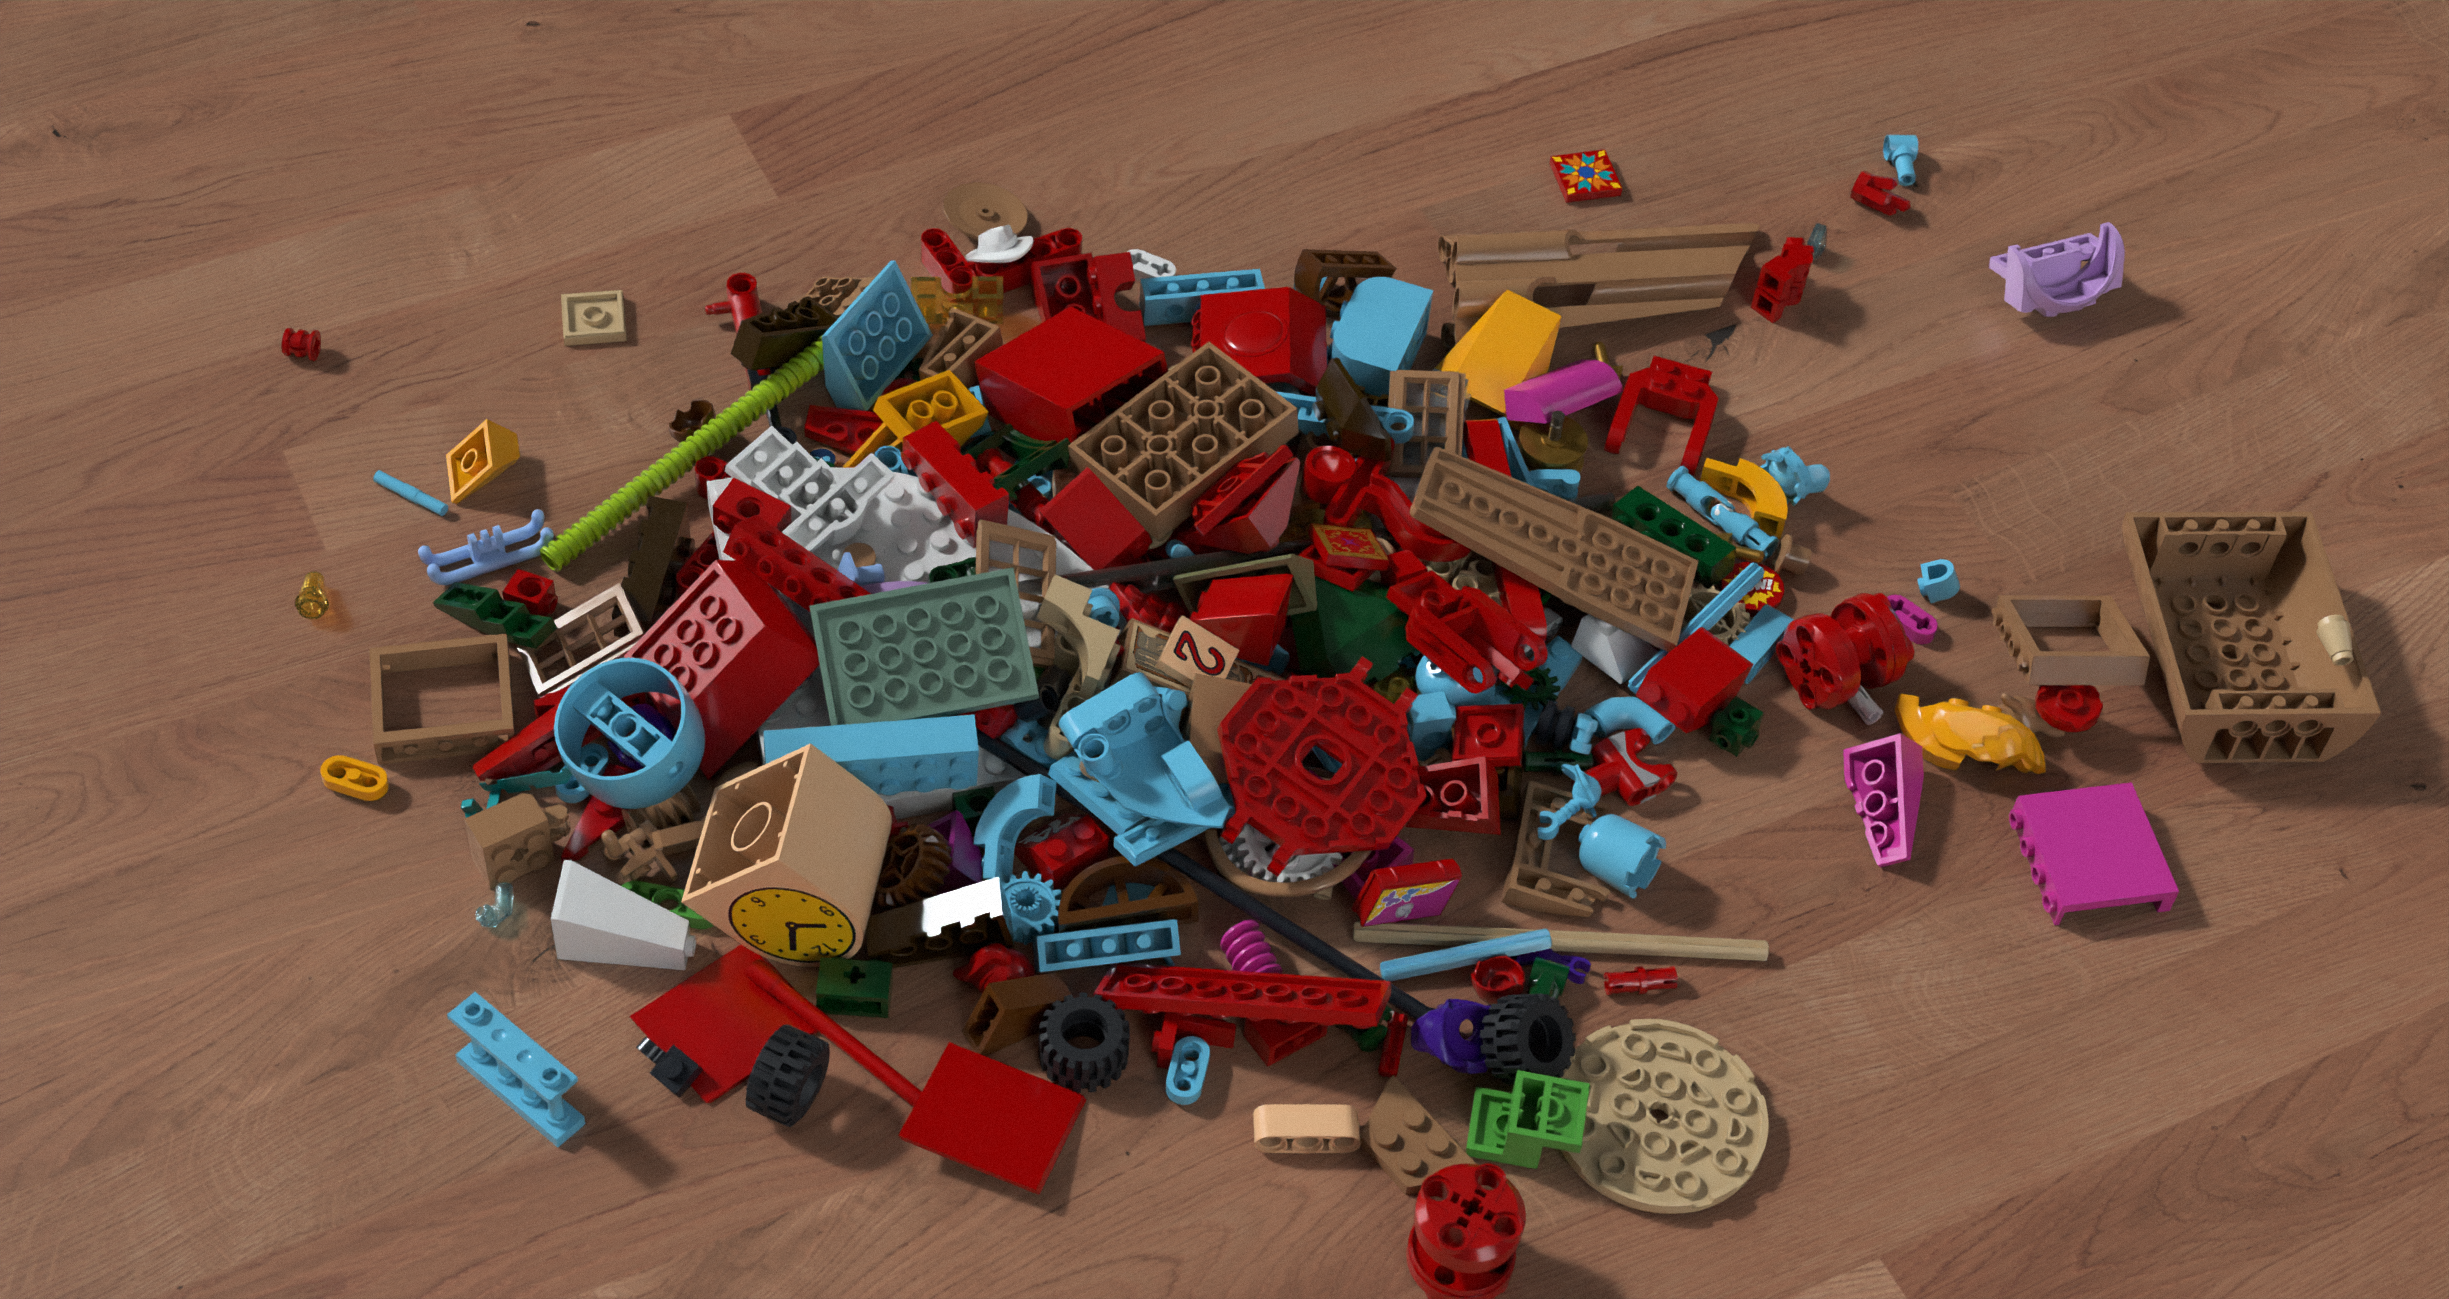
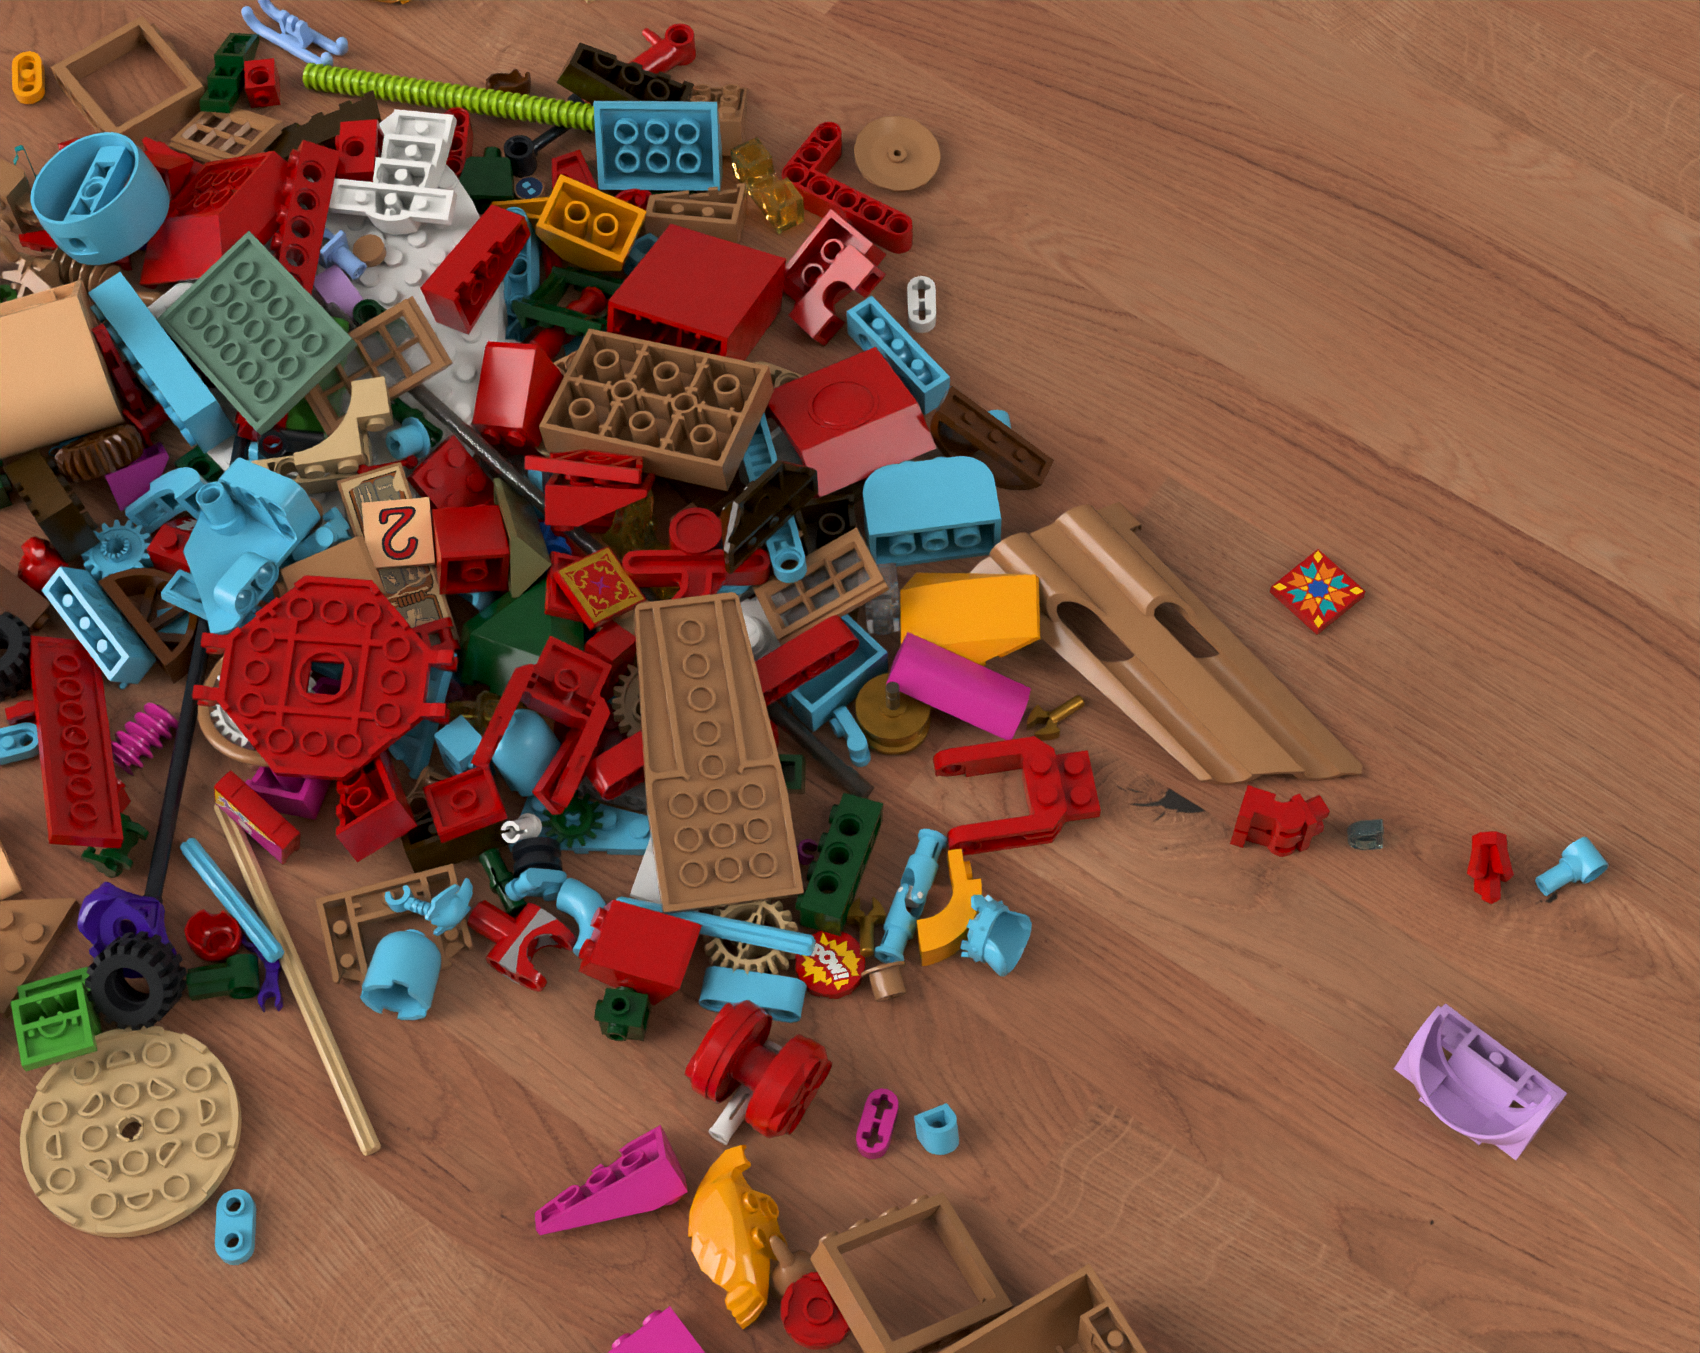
camera: 70 degrees right, 10 degrees up
(1000, 246) = (848, 182): white hat -> none
(1393, 1045) = (135, 879): red axle -> none
(1533, 716) = (524, 827): none -> white pin
(1640, 980) = (280, 1055): red pin -> none
(1790, 1075) = (235, 1224): none -> medium azure plate

